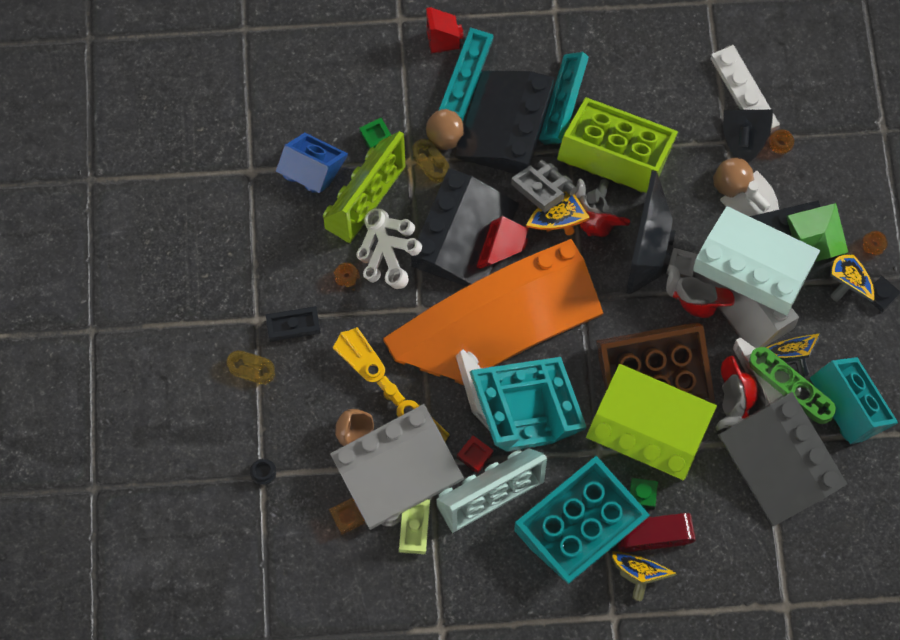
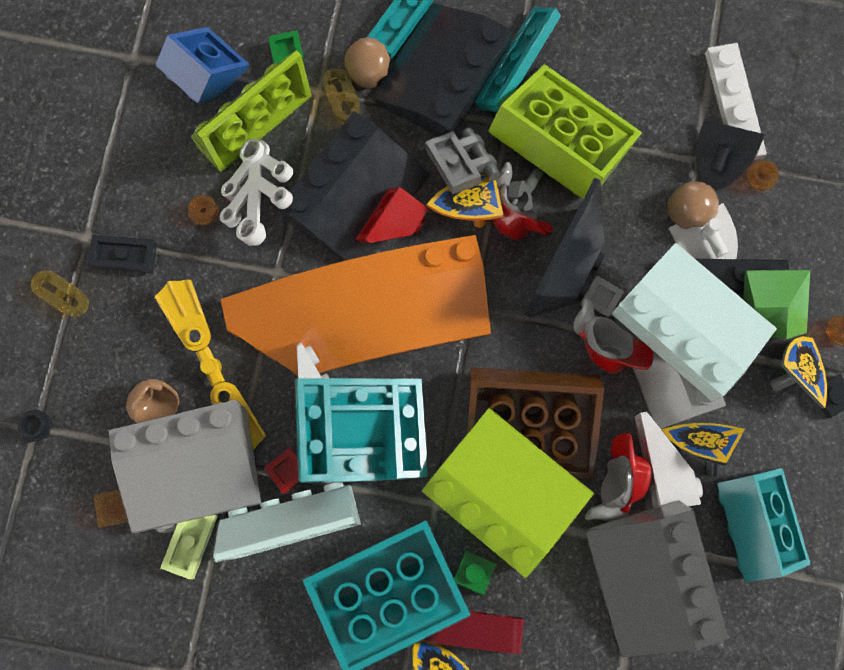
camera: 15 degrees right, 10 degrees up
(795, 381) = (698, 488): bright green beam -> none

